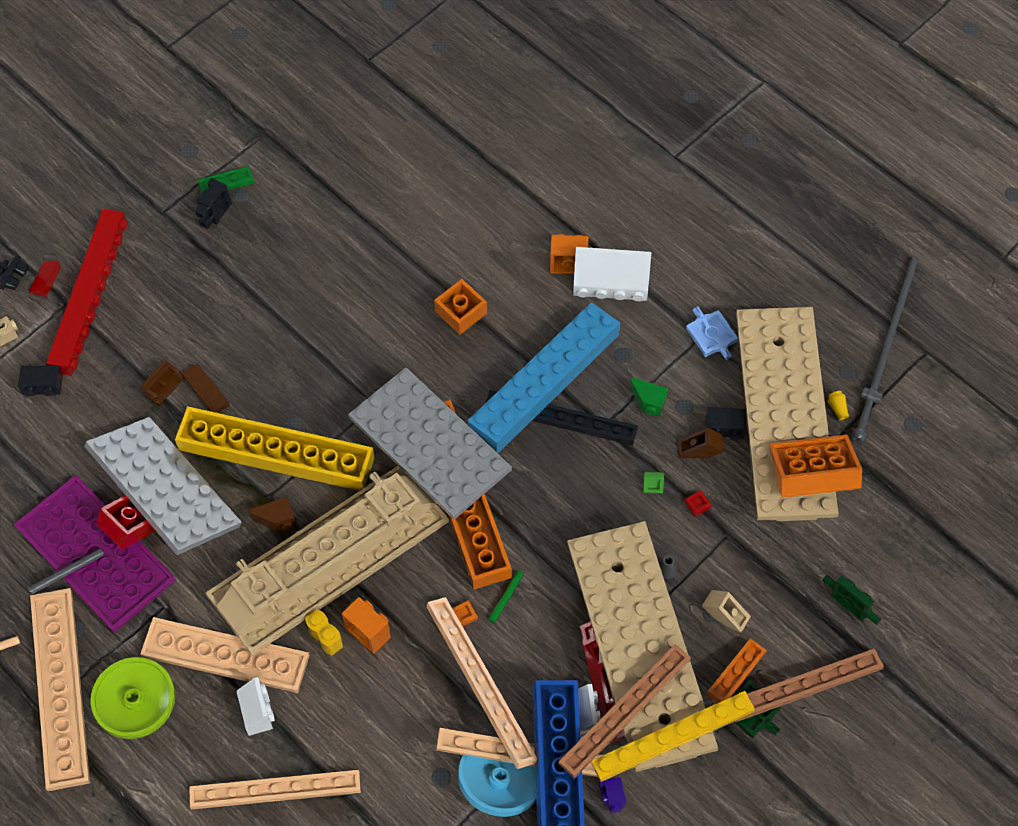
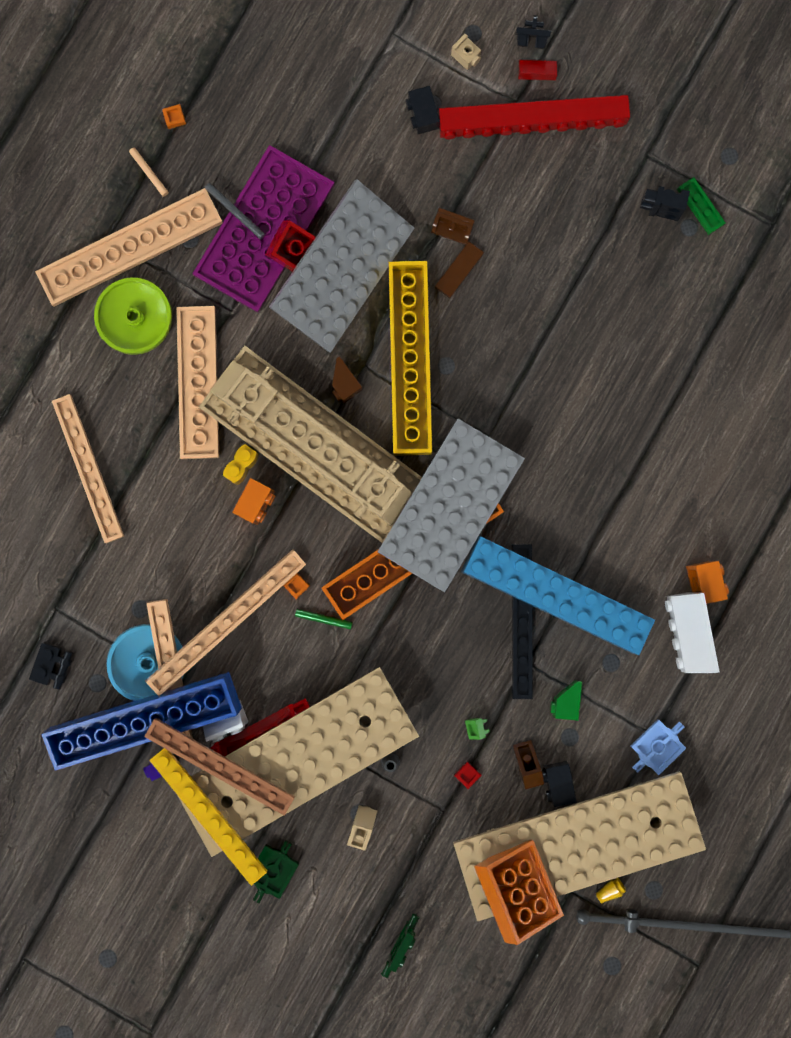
camera: 75 degrees right, 25 degrees up
(255, 707) = (153, 427): white slope -> none
(460, 306) = (616, 489): orange brick -> none
(736, 671) = (299, 852): orange plate -> none
(814, 682) = (308, 921): nougat plate -> none

